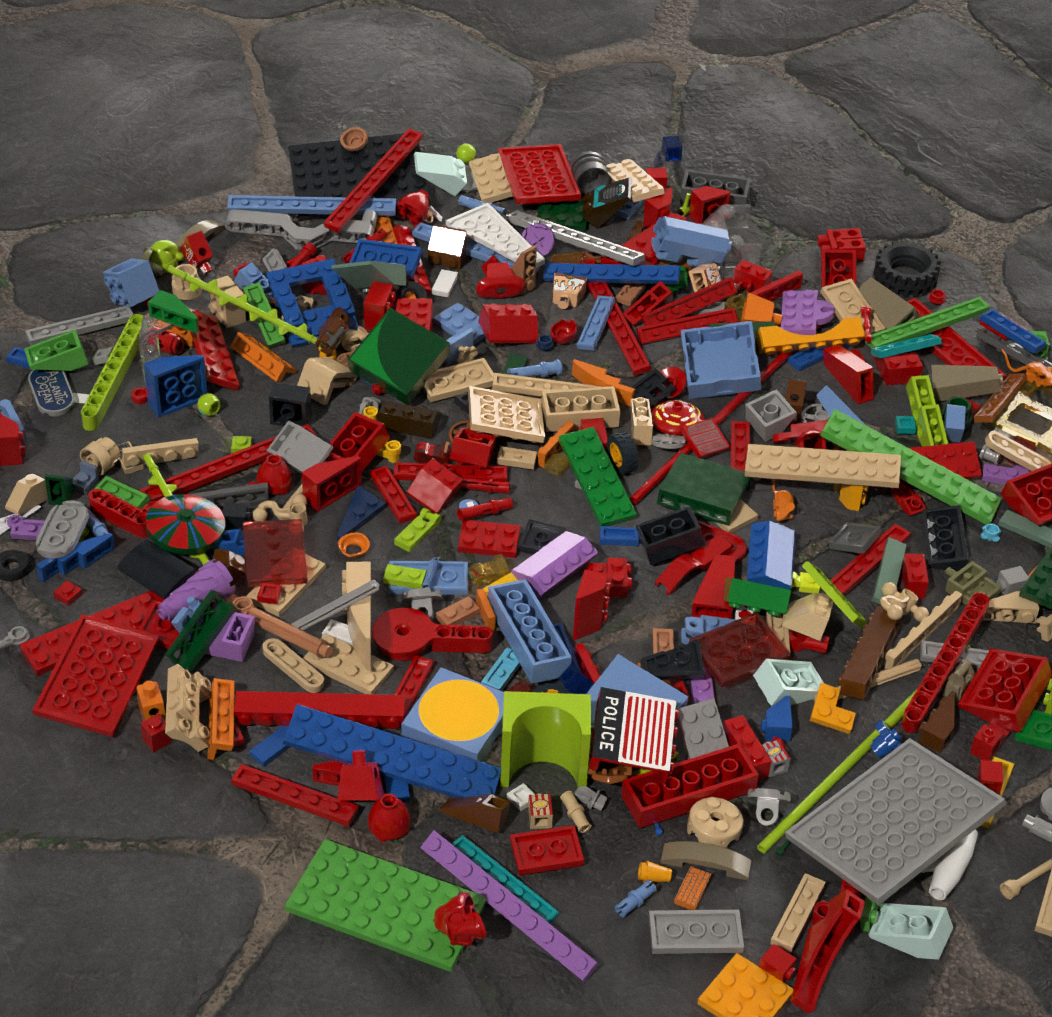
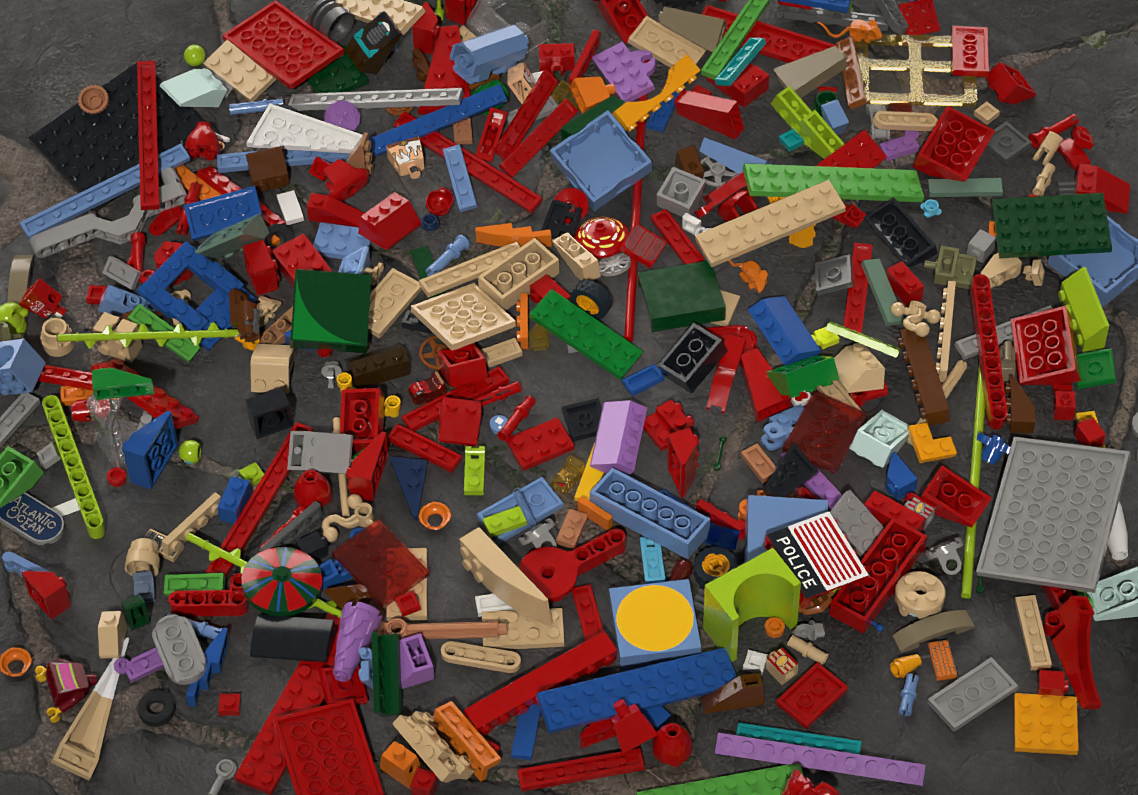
camera: 30 degrees left, 10 degrees up
(207, 450) = (234, 499): none -> blue brick
(261, 357) = (193, 376): orange fence -> none
(336, 605) = (489, 585): light grey axle -> none
(339, 248) = (165, 220): none -> red piece
(469, 295) = (332, 211): none -> red slope
(563, 779) = (774, 627): none -> orange tile
(570, 258) = (382, 124): clear orange tile -> none
(625, 630) = (717, 466): none -> dark green hinge
(761, 439) = (690, 223): none -> white tile
(814, 760) = (955, 498): none -> red slope
(866, 314) = (683, 45): red piece -> none

